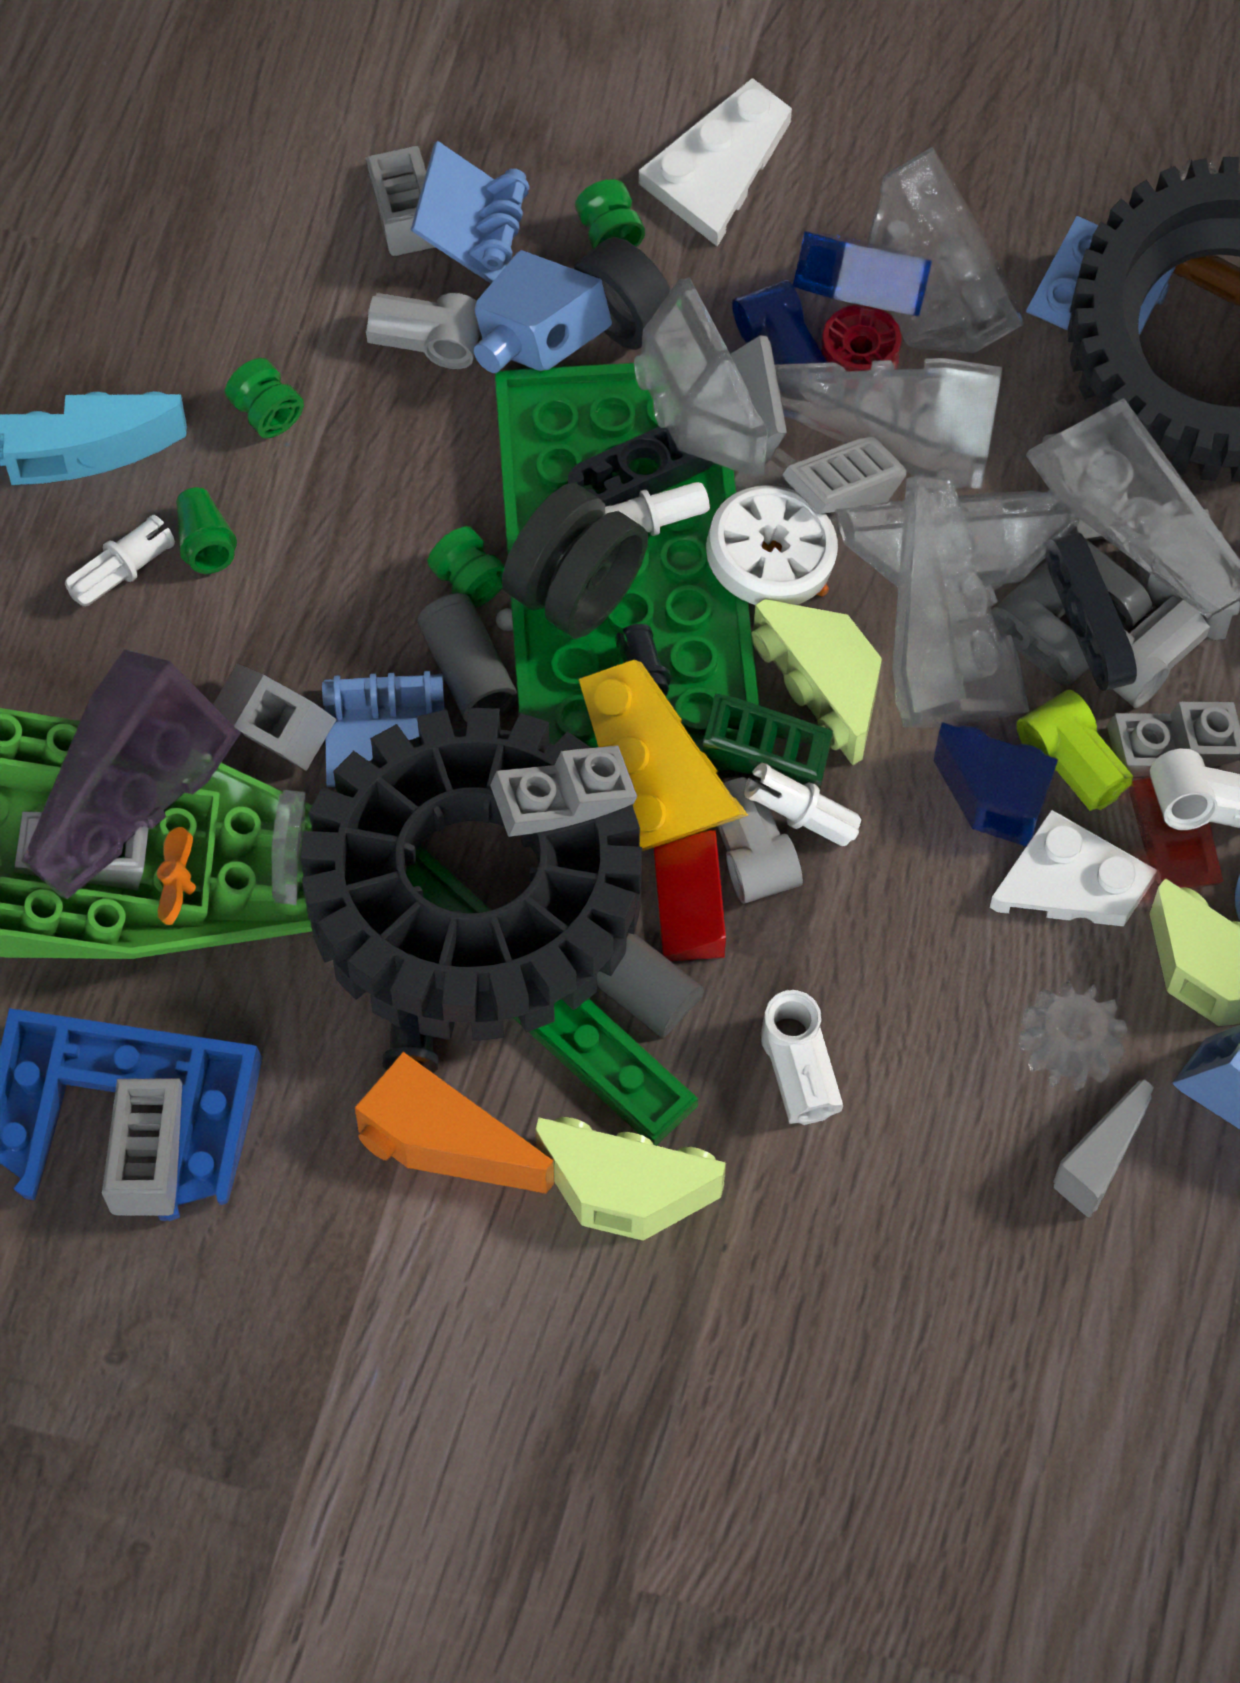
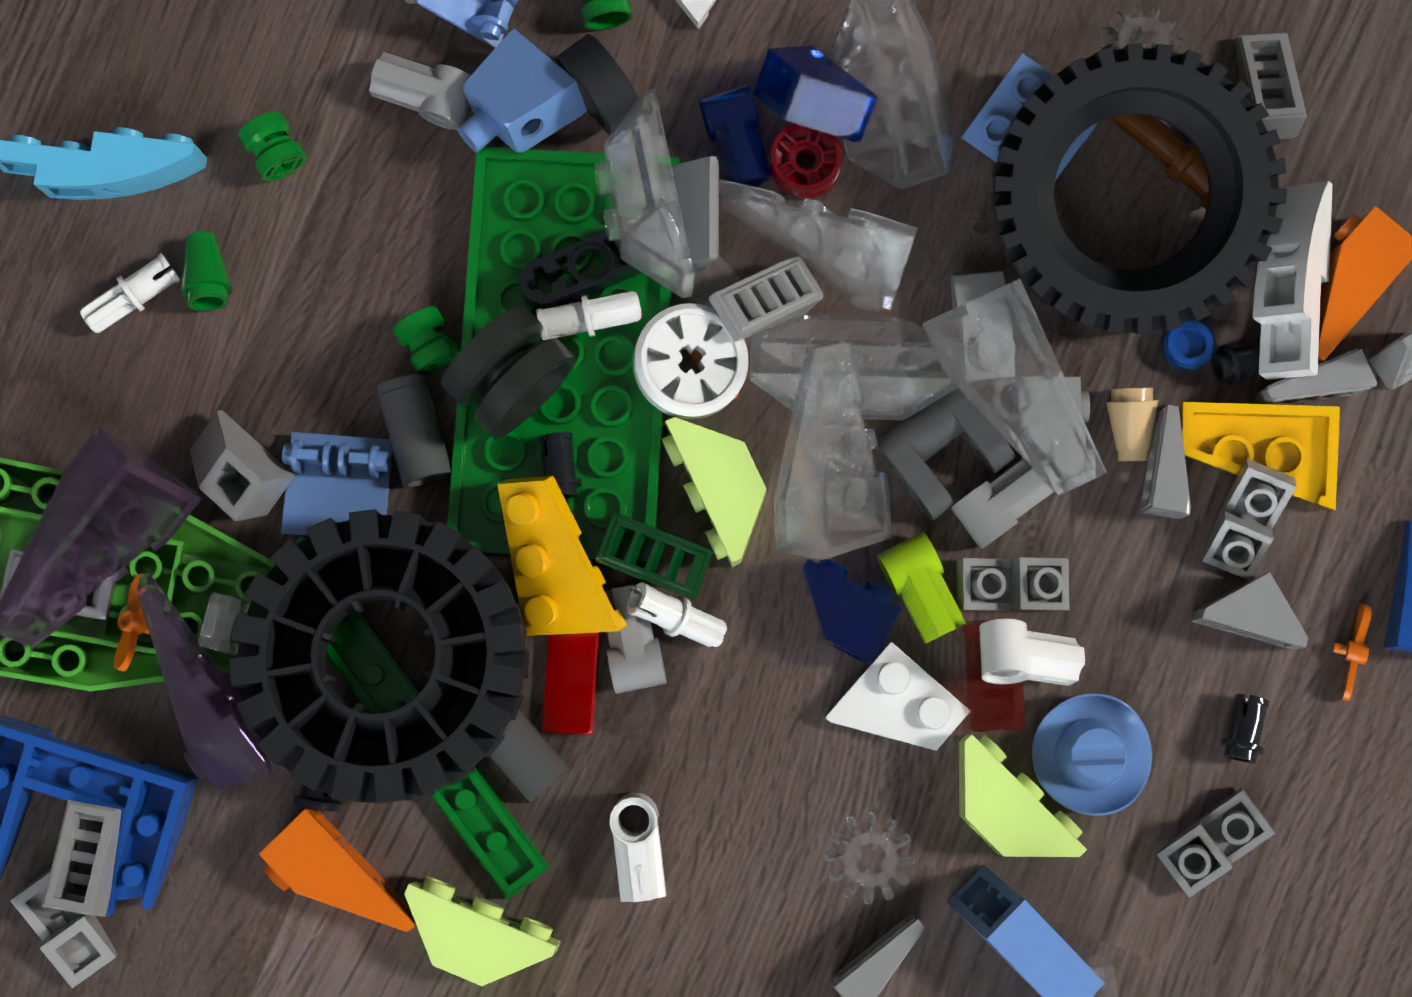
camera: 15 degrees right, 20 degrees up
(125, 1247) = (70, 940): none -> light grey slope
(284, 974) = (201, 697): none -> clear purple wedge
(560, 795) = (460, 610): light grey slope -> none
(1091, 611) = (955, 474): black beam -> none

